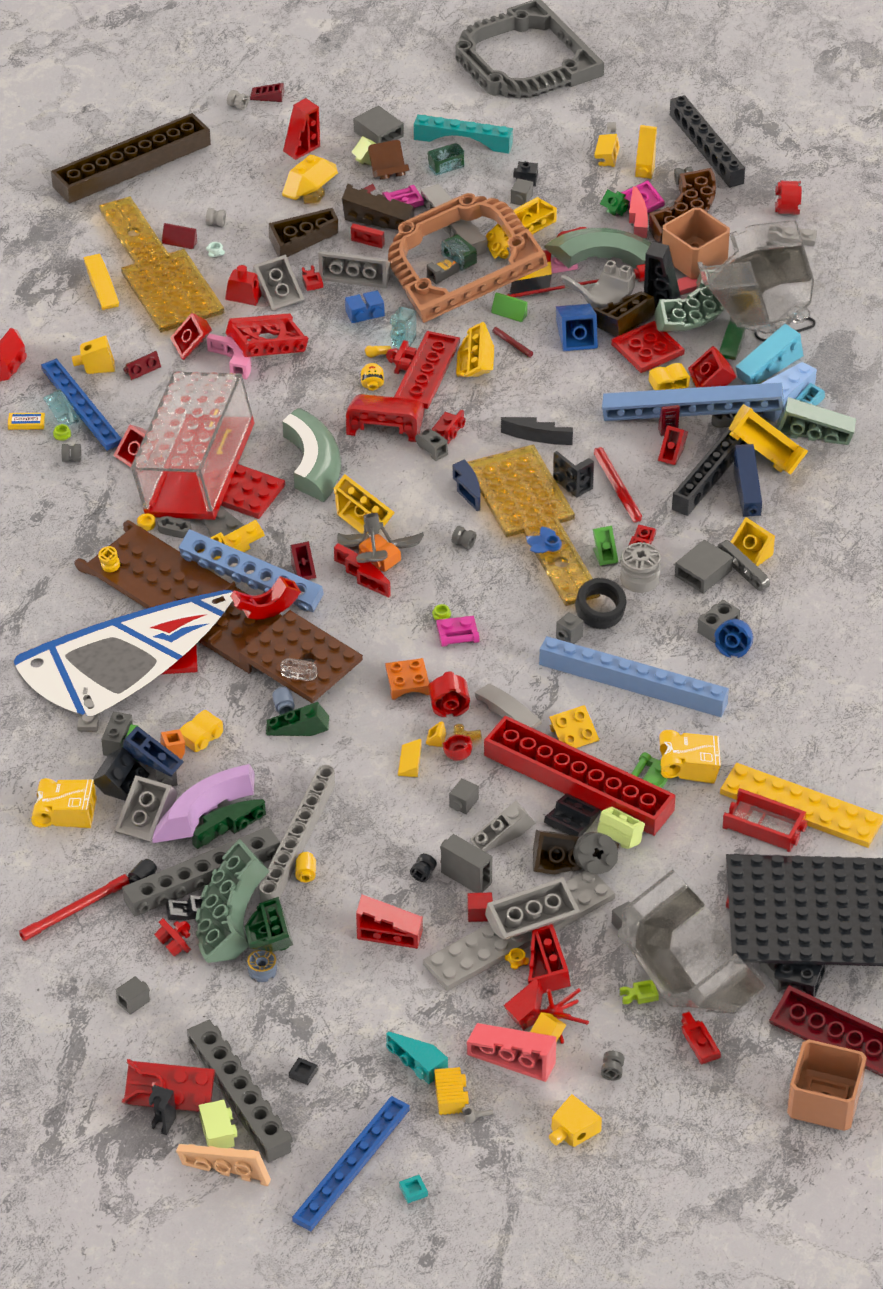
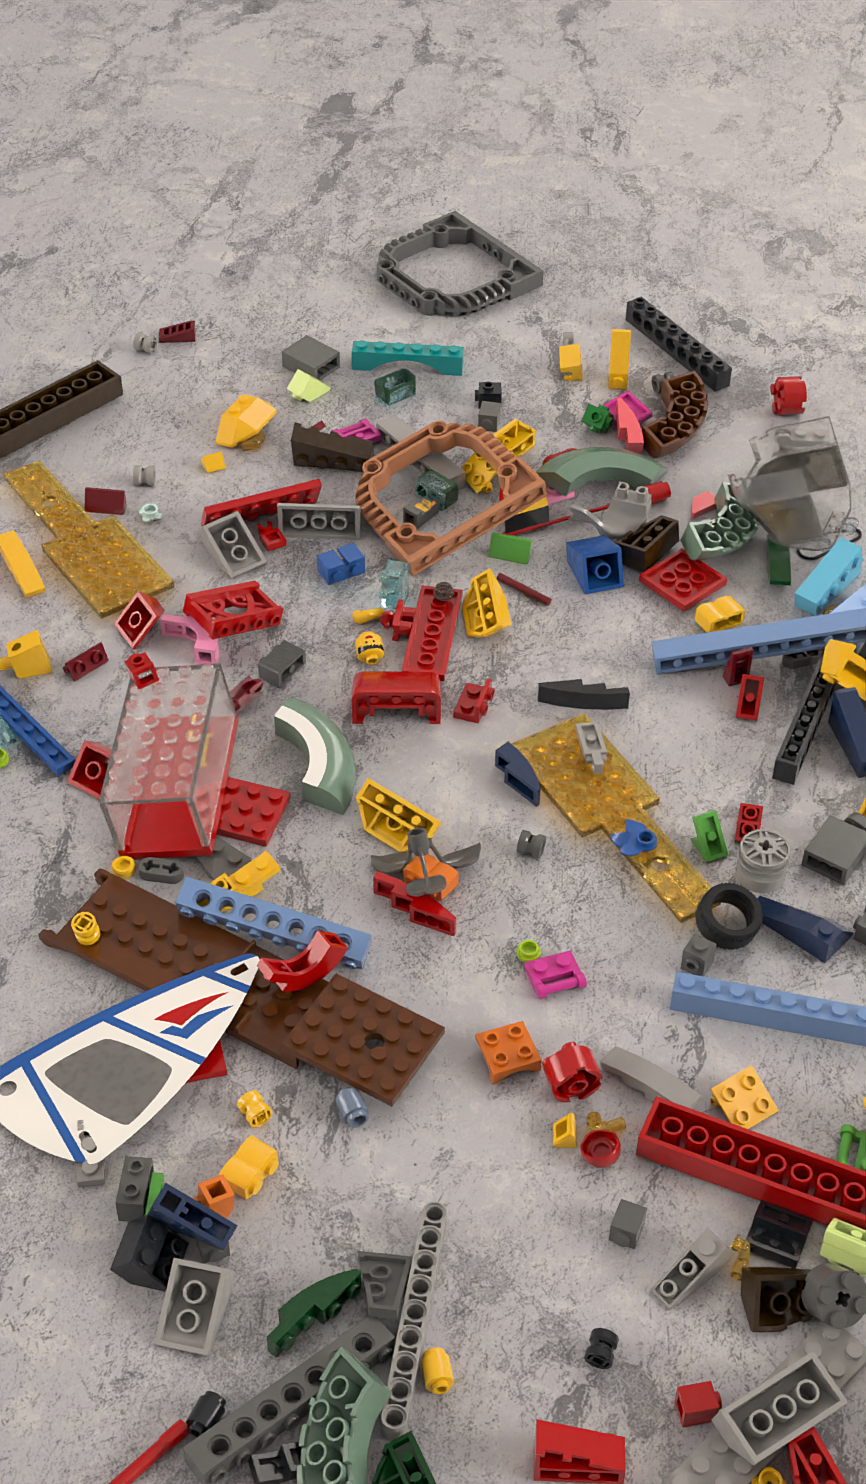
camera: 10 degrees left, 0 degrees up
(64, 803) = (76, 1311): yellow piece -> none
(75, 452) = (19, 784): dark grey wheel -> none
(176, 368) = (139, 664): none -> red brick
(202, 799) = (249, 1309): lavender brick -> none
(212, 694) = (252, 1106): none -> yellow wheel
(243, 286) = (193, 553): red torso -> none
(264, 402) = (245, 693): none -> dark red hinge
(276, 211) = (213, 462): none -> yellow slope
(280, 810) = (384, 1282): none -> dark grey wing
(298, 381) = (281, 663): none -> dark grey brick
(298, 669) = (367, 1061): clear beam -> none
(300, 722) = (379, 1137): dark green slope -> none
(302, 231) = (251, 478): dark brown wedge -> none
(302, 560) = (336, 900): dark red slope -> none
(303, 129) = (228, 368): red wedge -> none
(309, 250) = (264, 503): none -> red plate
(367, 236) = (330, 480): red plate -> none
(387, 159) = (330, 393): reddish brown bracket -> none
(410, 759) = (540, 1173): yellow slope -> none
(433, 443) = (462, 724): dark grey leg -> none
(442, 337) = (443, 591): none -> clear smoke plate
(466, 864) = (662, 1337): dark grey brick -> none
(530, 468) = (592, 745): none -> light grey hinge
(542, 820) = (743, 1258): none -> clear yellow arm
(574, 478) = (644, 750): black bracket -> none
(618, 485) = (699, 754): axle -> none
(660, 275) = (682, 493): black wedge -> none
(662, 622) = (807, 930): none -> dark blue wedge
(696, 239) = (705, 454): nougat plate -> none
(711, 370) = (766, 601): red slope -> none

